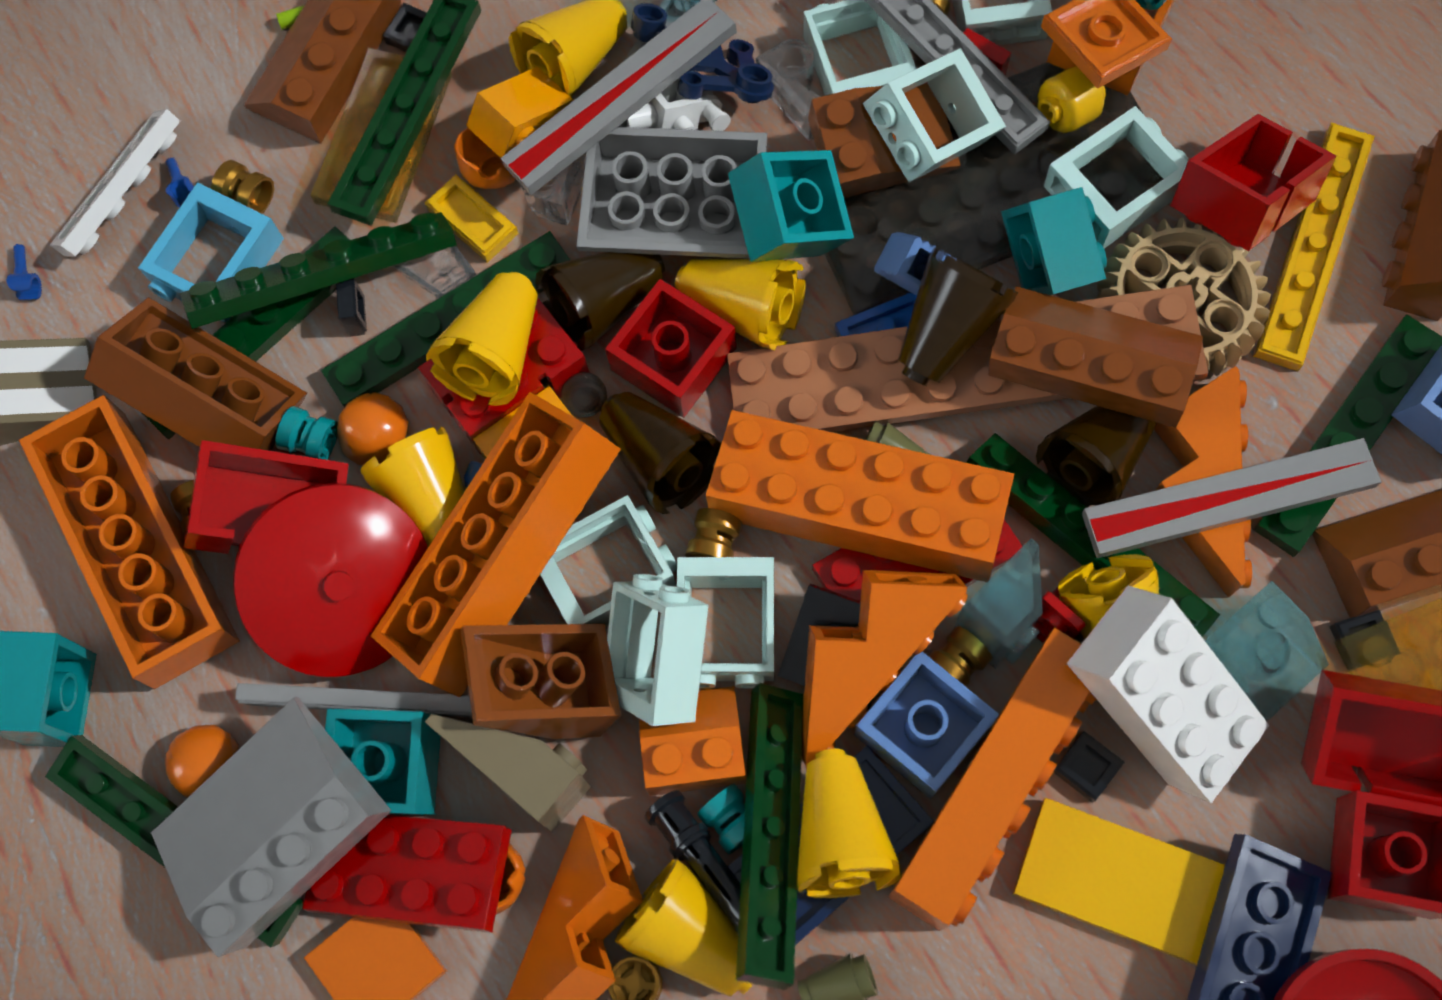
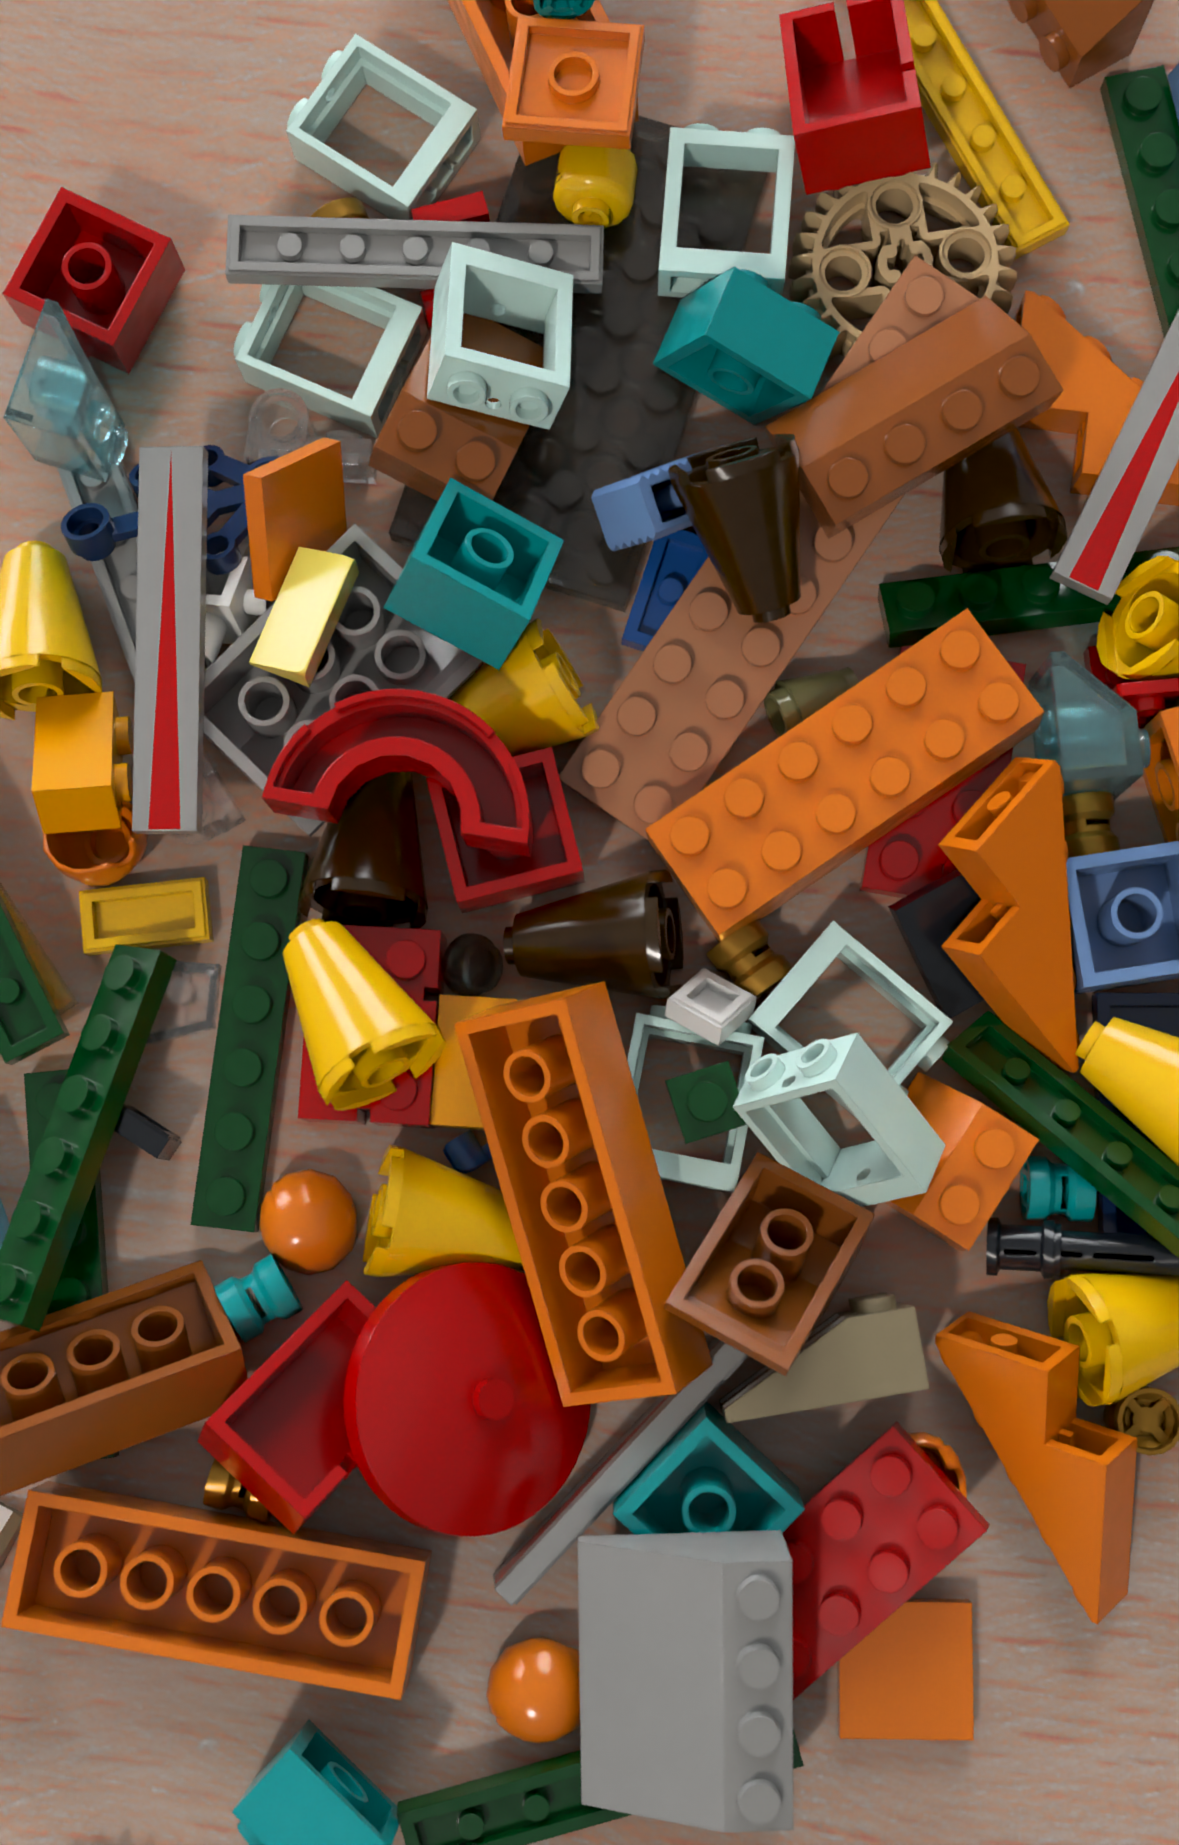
camera: 50 degrees left, 10 degrees up
(604, 566) = (705, 1102): none -> dark green plate
(663, 231) = (405, 733): none -> red brick
(665, 531) = (710, 1006): none -> white tile
(693, 148) = (305, 615): none -> light yellow slope
(744, 97) = (293, 506): none -> orange tile

